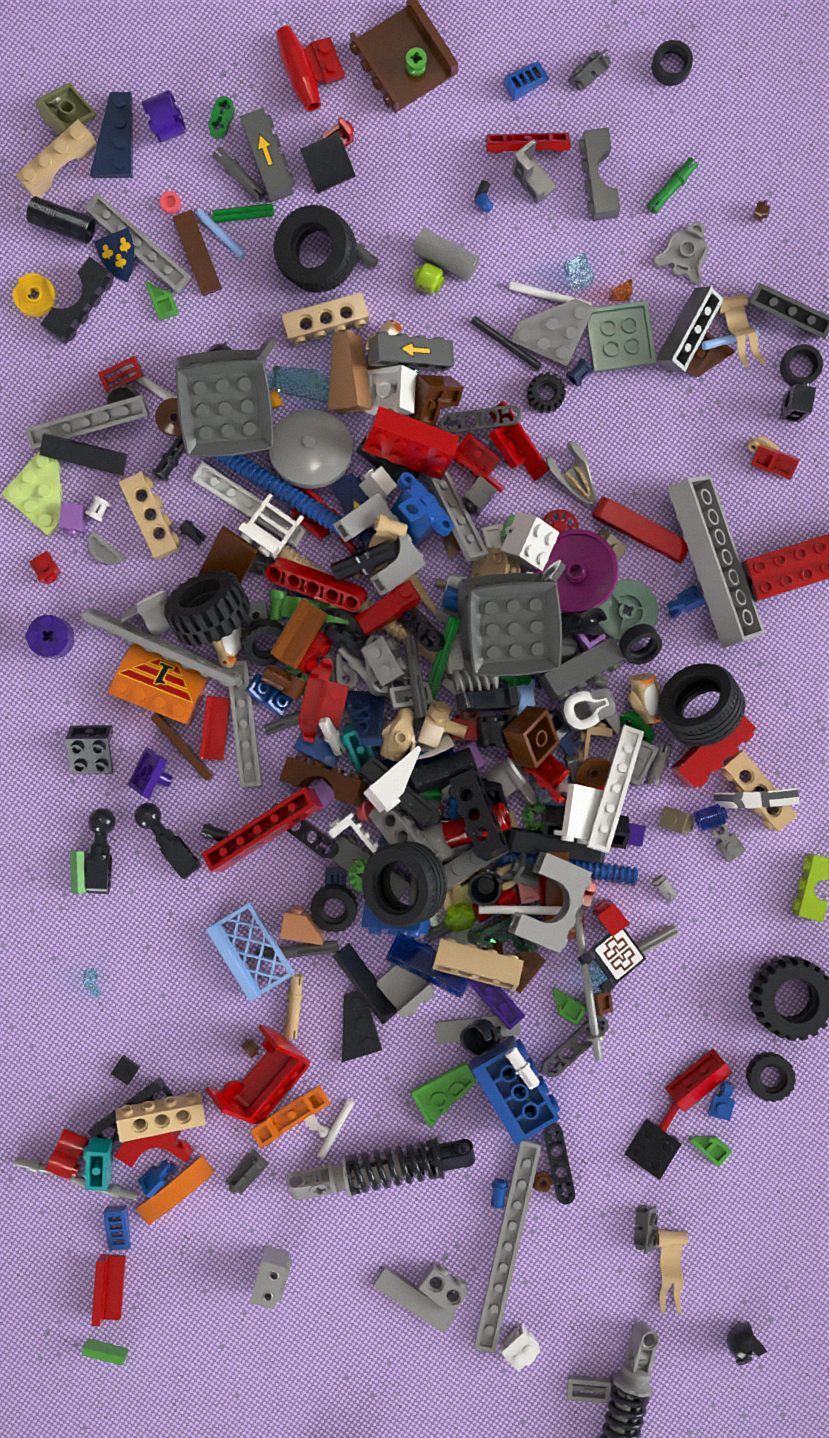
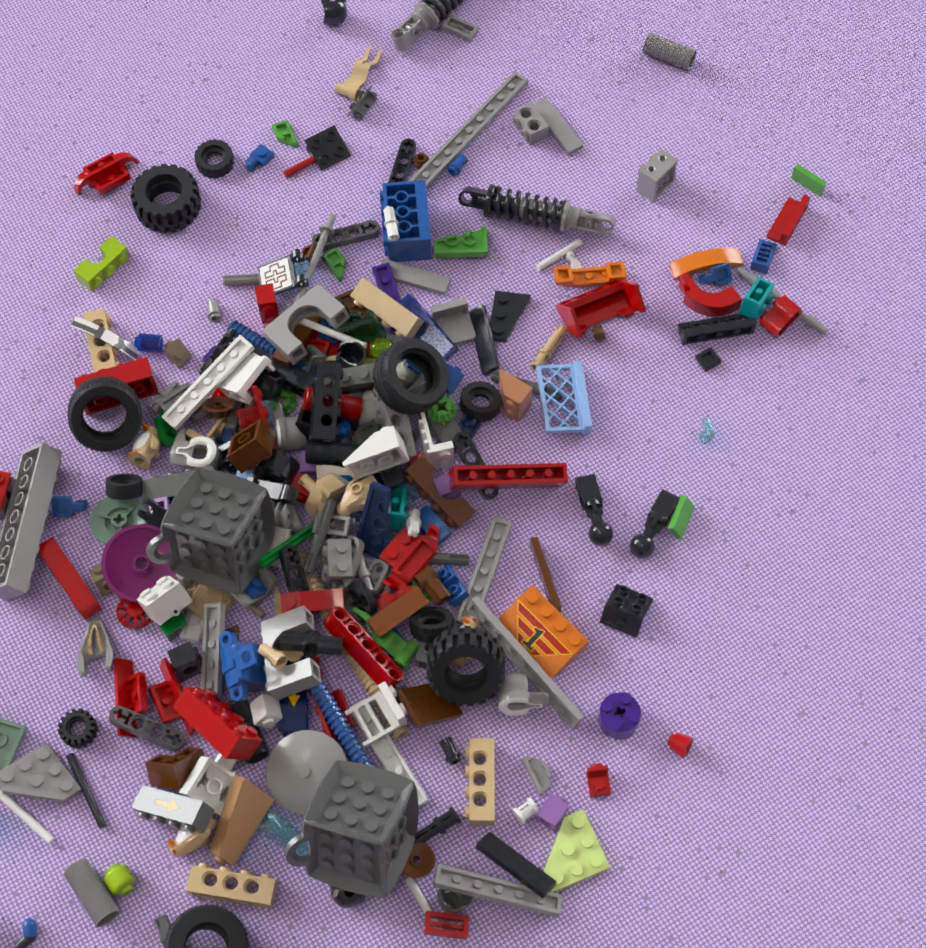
camera: 150 degrees left, 25 degrees down
(149, 772) = (584, 564): dark purple tile -> none
(151, 1120) = (692, 310): tan brick -> none
(213, 832) = (553, 500): black pin -> none
(215, 728) = (510, 580): red panel -> none
(246, 1172) = (643, 252): dark grey hinge -> none
(480, 1037) = (413, 263): black helmet -> none
(520, 1348) = (494, 68): white head -> none
(579, 372) = (39, 731): dark blue bush -> none
(631, 845) = (227, 337): none -> black piece
(698, 1080) = (268, 178): red panel -> none
(729, 844) = (147, 320): flat silver plate -> none

